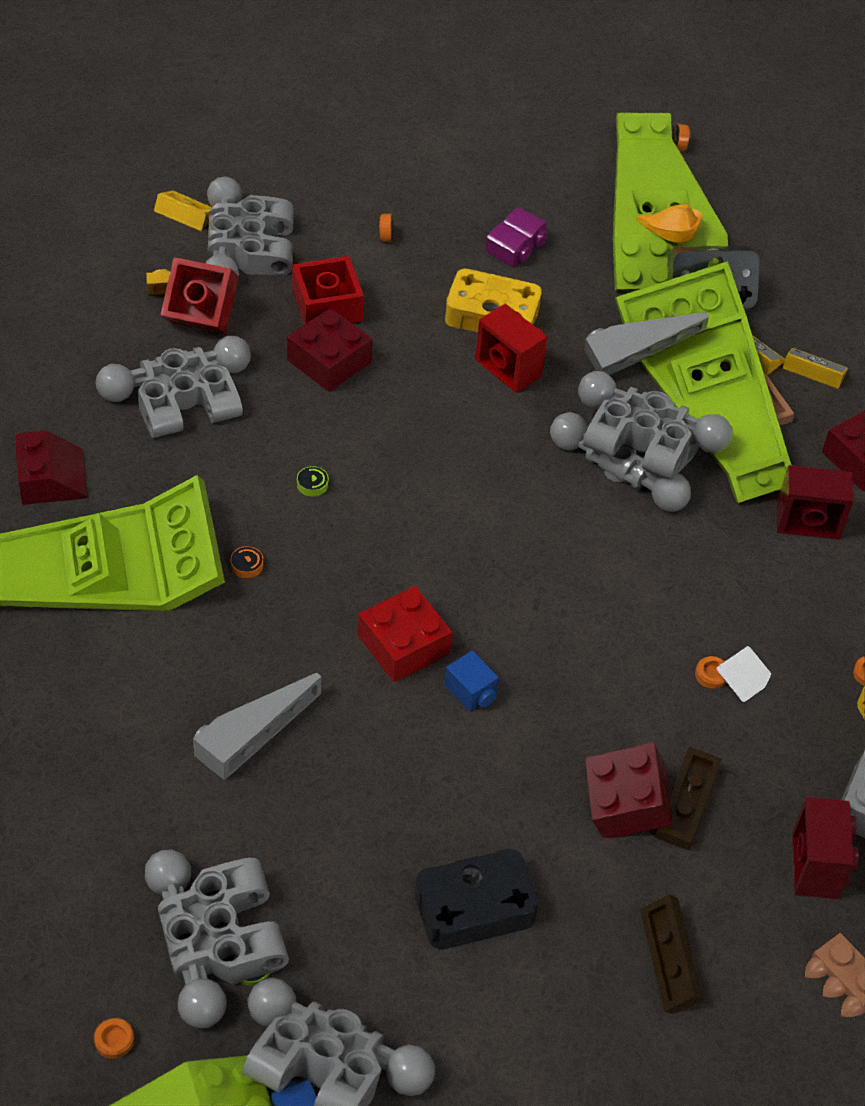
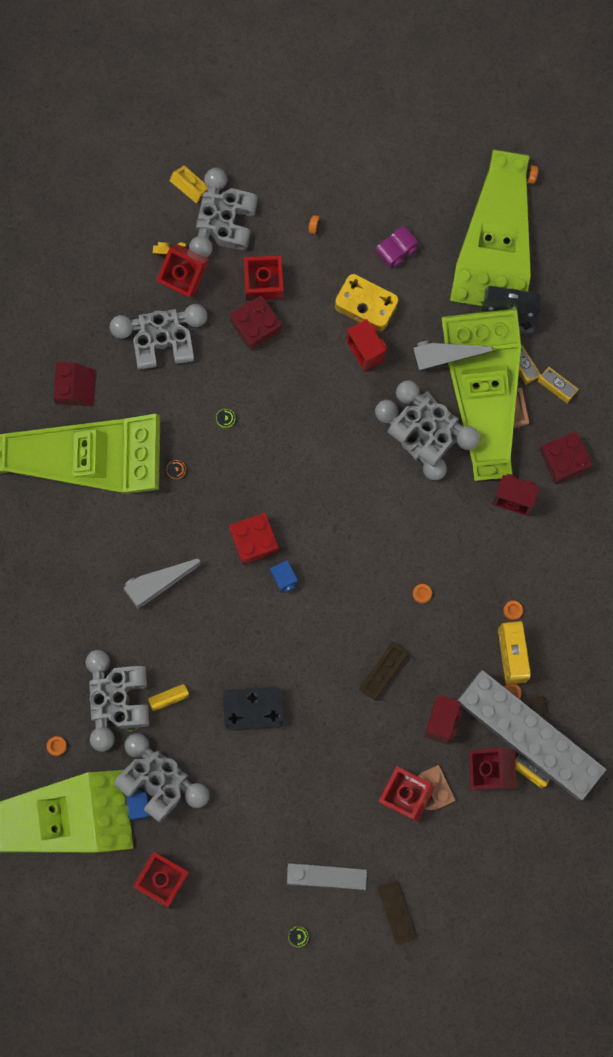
camera: 10 degrees right, 25 degrees up
(315, 912) = (168, 697): none -> yellow slope
(628, 791) = (349, 664): dark red brick -> none
(671, 954) = (345, 759): dark brown plate -> none
(674, 224) = (496, 264): light orange piece -> none
(745, 673) = (440, 598): white sticker -> none
(805, 987) = (406, 794): none -> red brick

